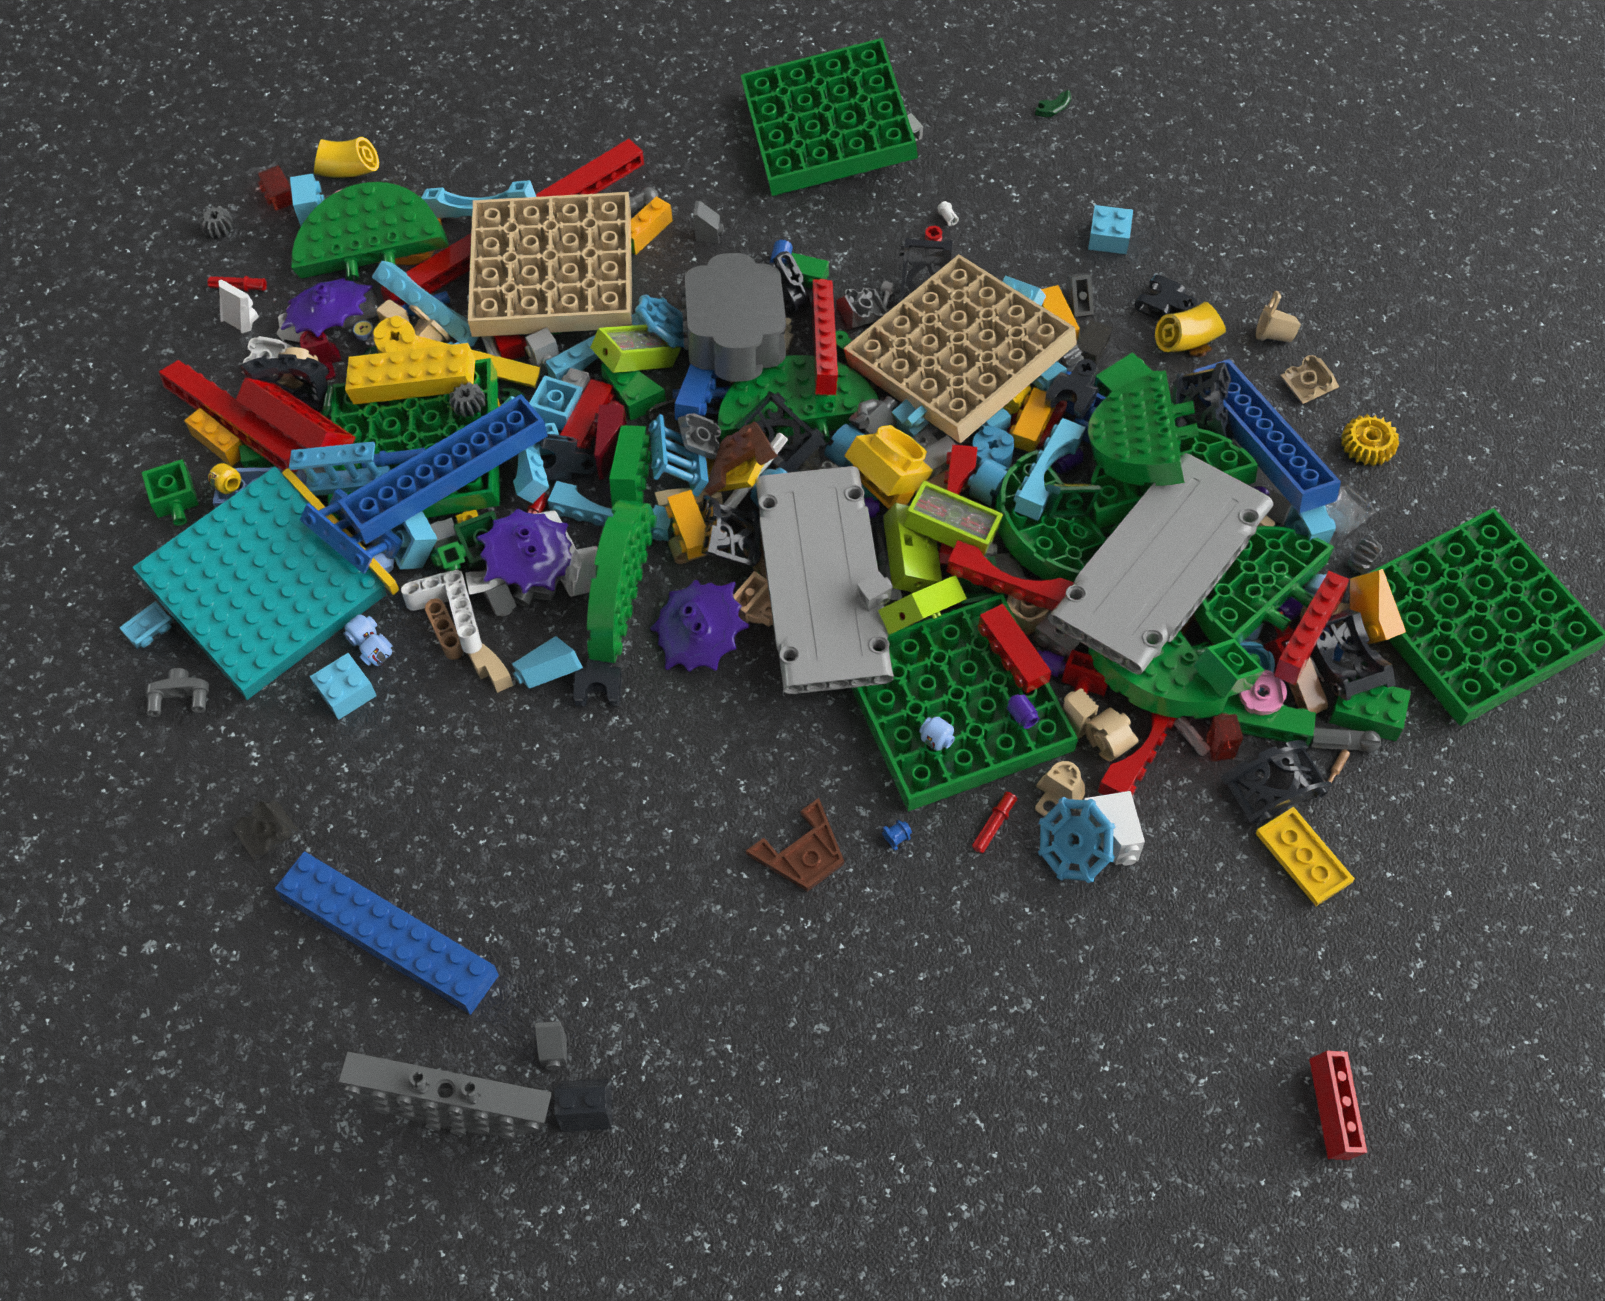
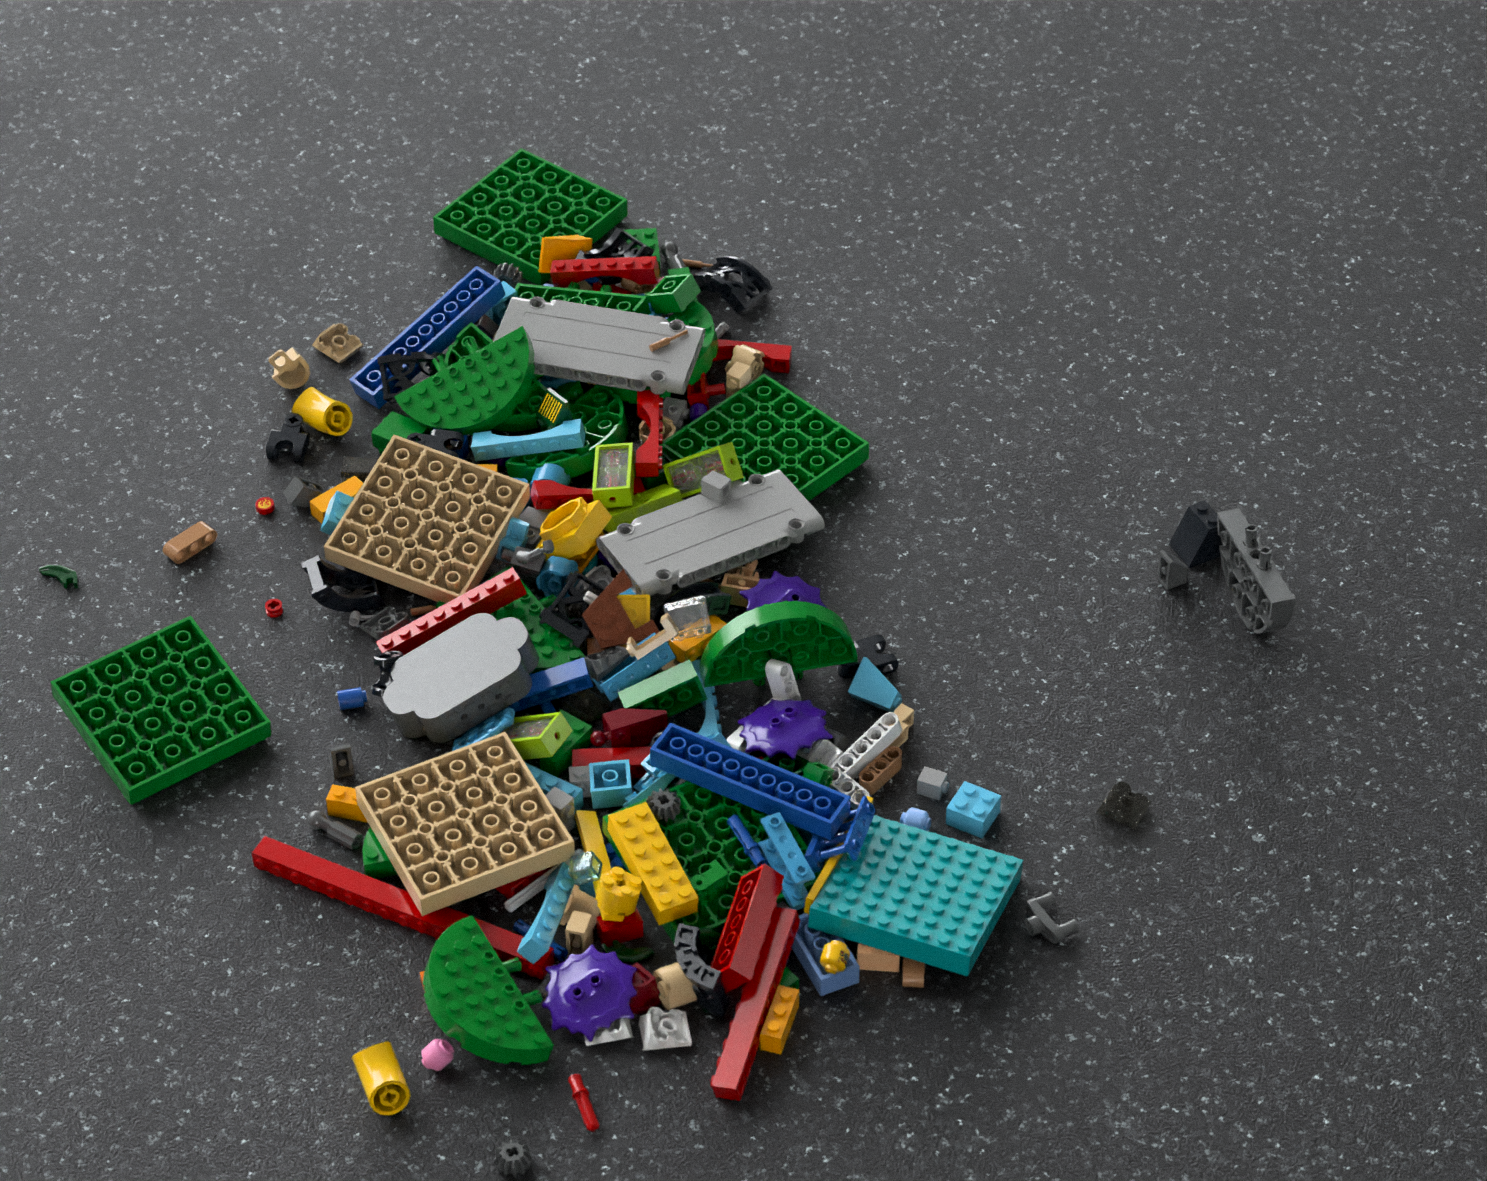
camera: 115 degrees left, 15 degrees down
(146, 625) = (1000, 969): medium azure bracket -> none
(170, 490) = (858, 1019): green brick -> none
(236, 307) = (622, 1075): white slope -> none
(276, 187) = (441, 1127): clear red brick -> none
(305, 195) = (457, 1077): medium azure brick -> none
(370, 415) = (710, 880): none -> green leg
(375, 649) = (928, 802): light blue head -> none
(387, 932) = (1154, 696): blue brick -> none
(400, 667) = (932, 783): none -> light grey brick
(446, 332) = (585, 868): none -> clear light blue brick
(451, 205) = (397, 928): medium azure arch -> none
(677, 456) = (669, 631): none -> tan panel
(695, 502) = (690, 617): none -> clear slope
(807, 859) = (936, 493): copper wing -> none
(811, 269) = (363, 672): green brick -> none
(897, 833) = (892, 455): blue brick -> none
(937, 733) = (810, 434): light blue head -> none
(945, 210) = (240, 606): white pin -> none
(994, 822) = (851, 412): red axle -> none
(1014, 649) = (711, 416): red brick -> none
(1023, 711) = (763, 398): dark purple brick -> none
(1050, 195) = (189, 542): none -> medium nougat beam
(1059, 782) = (799, 381): tan container -> none
(1081, 263) = (265, 505): none -> red tile
(1088, 839) = (854, 346): dark azure plate -> none
(1110, 229) = (219, 491): medium azure brick -> none
(1127, 616) = (661, 343): none -> medium nougat piece
(1127, 835) = (819, 343): white slope -> none
(1224, 737) = (717, 305): clear red brick -> none
(1304, 856) = (783, 260): yellow plate -> none
(1338, 1105) = (952, 211): red brick -> none
(1370, 440) = (387, 299): yellow gear -> none

